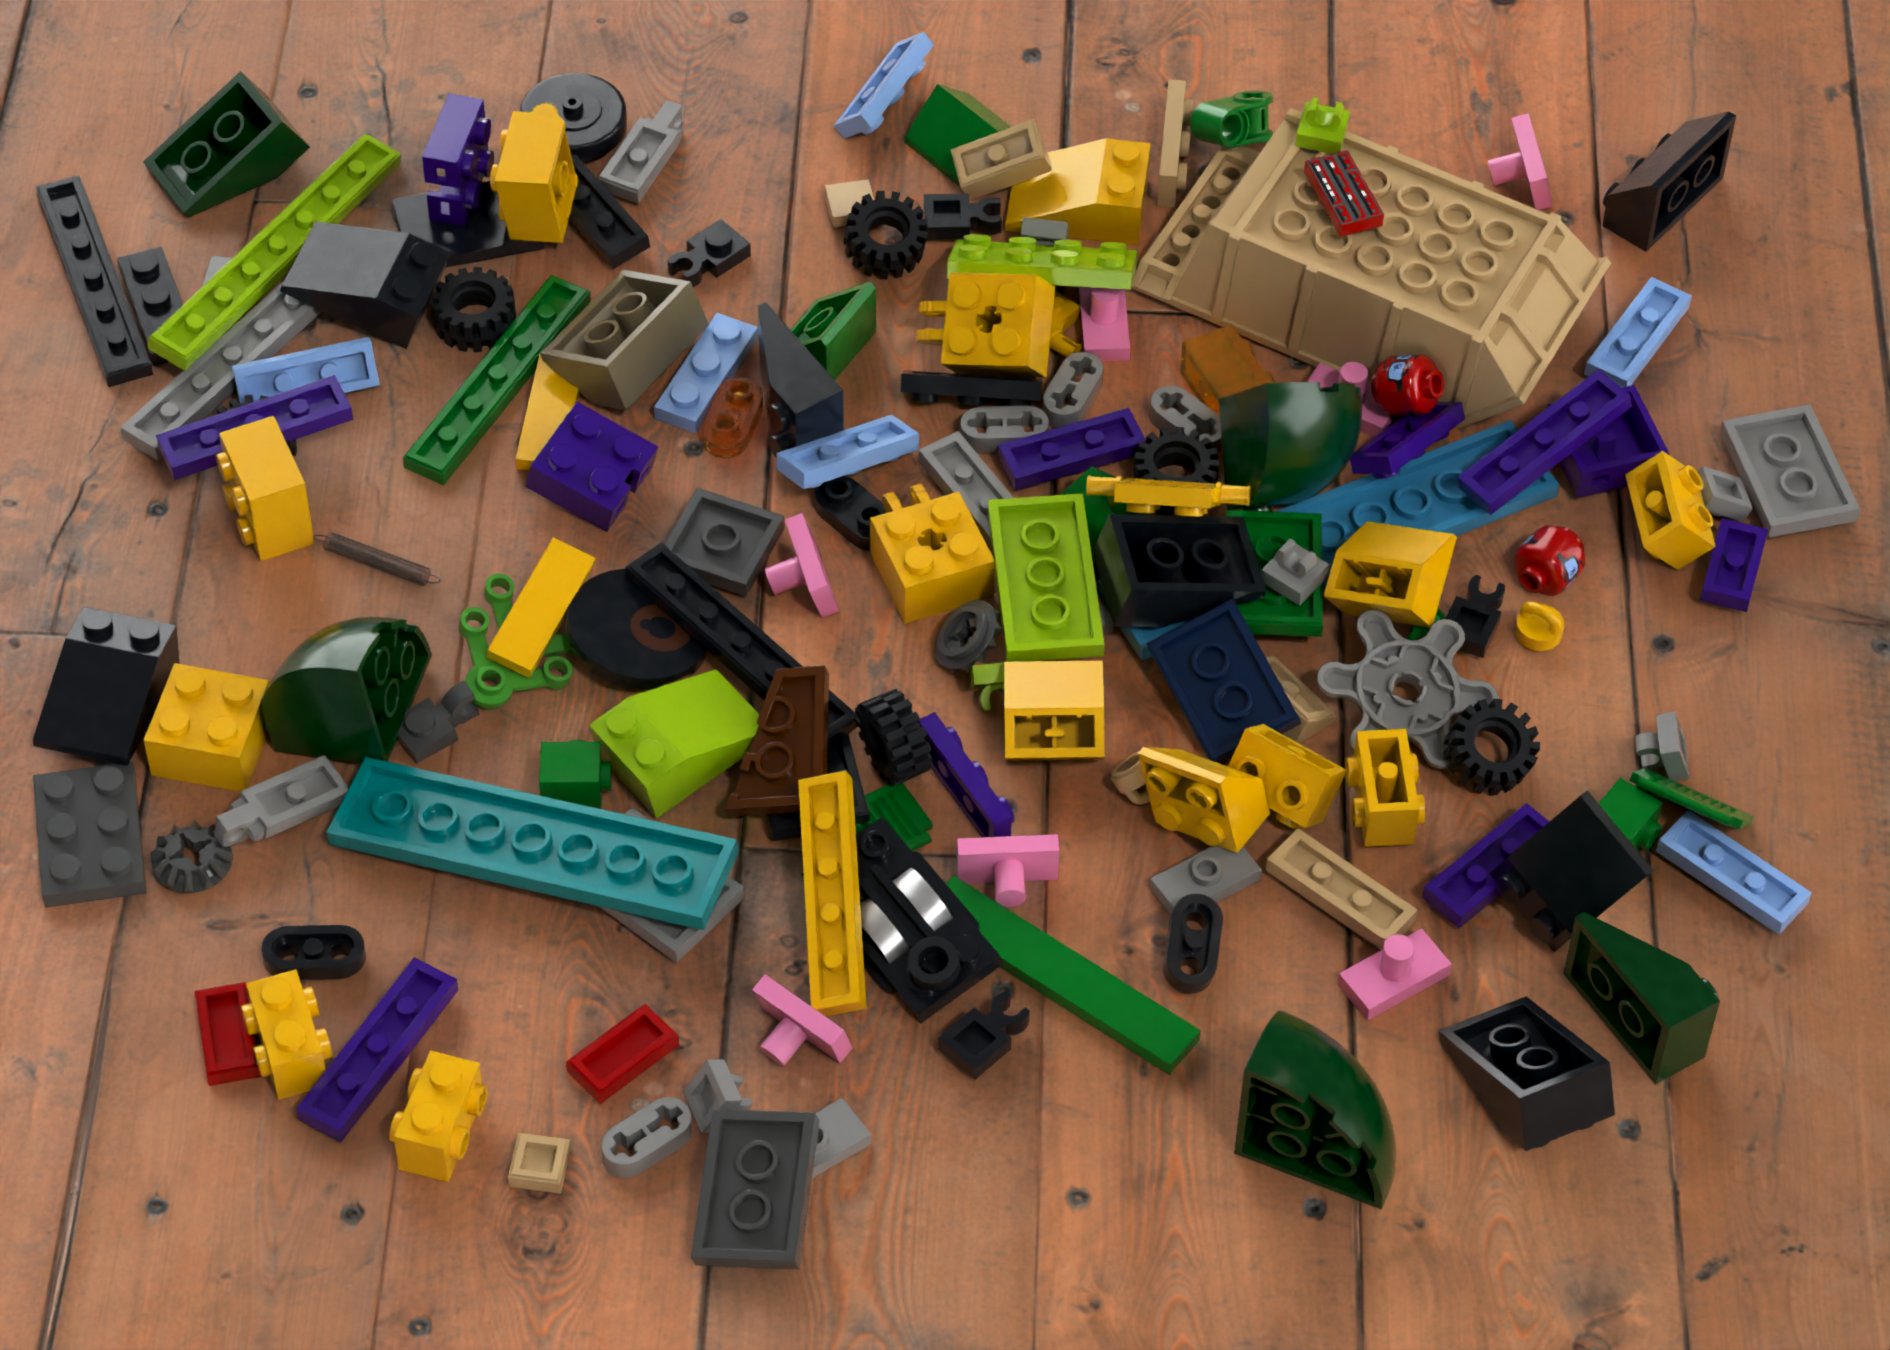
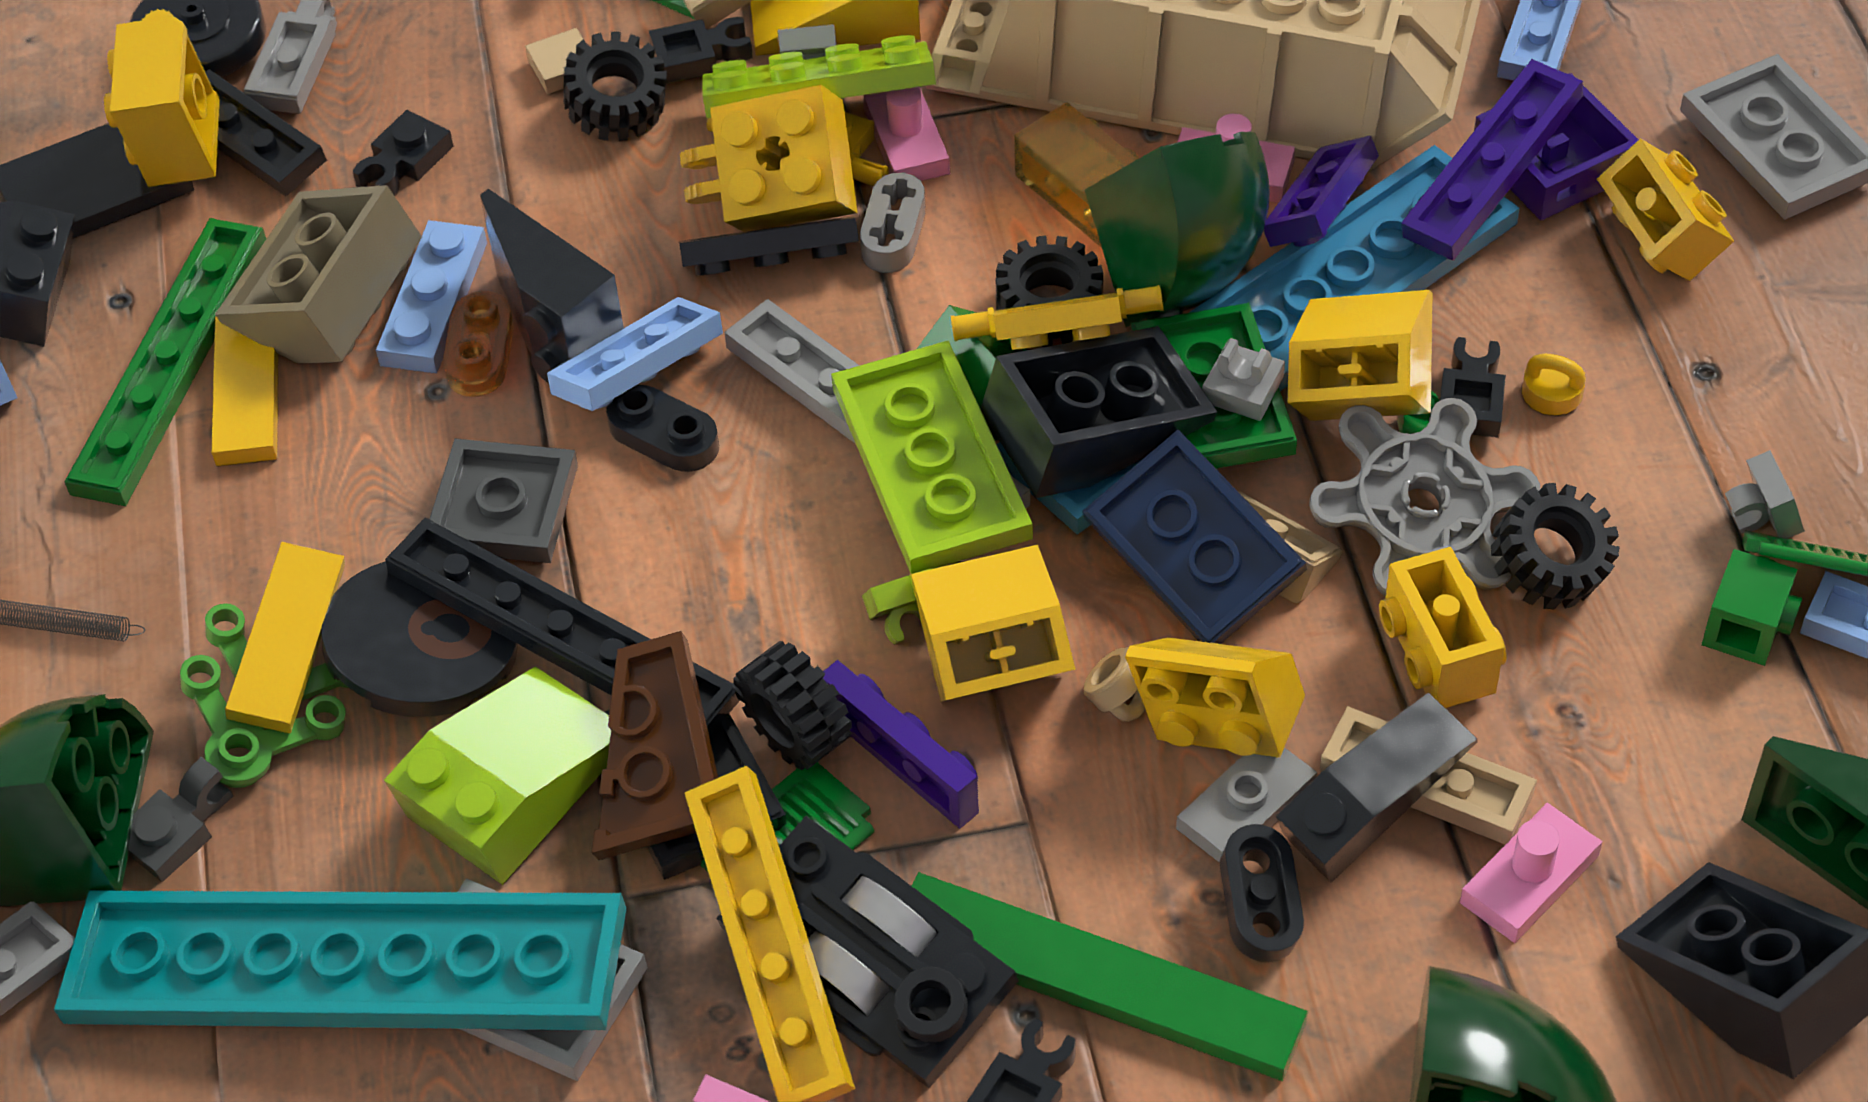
camera: 10 degrees left, 0 degrees up
(461, 149) = (60, 81): dark purple piece -> none
(469, 290) = (111, 257): black tyre -> none
(574, 772) = (378, 849): green brick -> none
(587, 466) = (308, 441): dark purple piece -> none
(804, 568) = (616, 511): bright pink tile -> none
(838, 326) = (587, 201): green slope -> none
(930, 554) = (774, 458): yellow hinge -> none
(959, 628) = (835, 545): dark grey gear -> none
(1001, 425) = (824, 285): light grey beam -> none
(1008, 863) = (987, 839): bright pink tile -> none
(1070, 449) = (911, 292): dark purple plate -> none
(1191, 414) = (1026, 215): light grey beam -> none
(1295, 779) = (1315, 635): yellow brick -> none
(1295, 886) = (1373, 785): none -> black slope
(1407, 385) = (1303, 127): red head -> none
(1466, 884) = (1606, 699): dark purple plate -> none
(1551, 559) = (1541, 298): red head -> none
(1570, 869) = (1731, 684): black slope -> none
(1724, 494) = (1721, 178): light grey plate -> none
(1734, 565) = (1760, 260): dark purple plate -> none

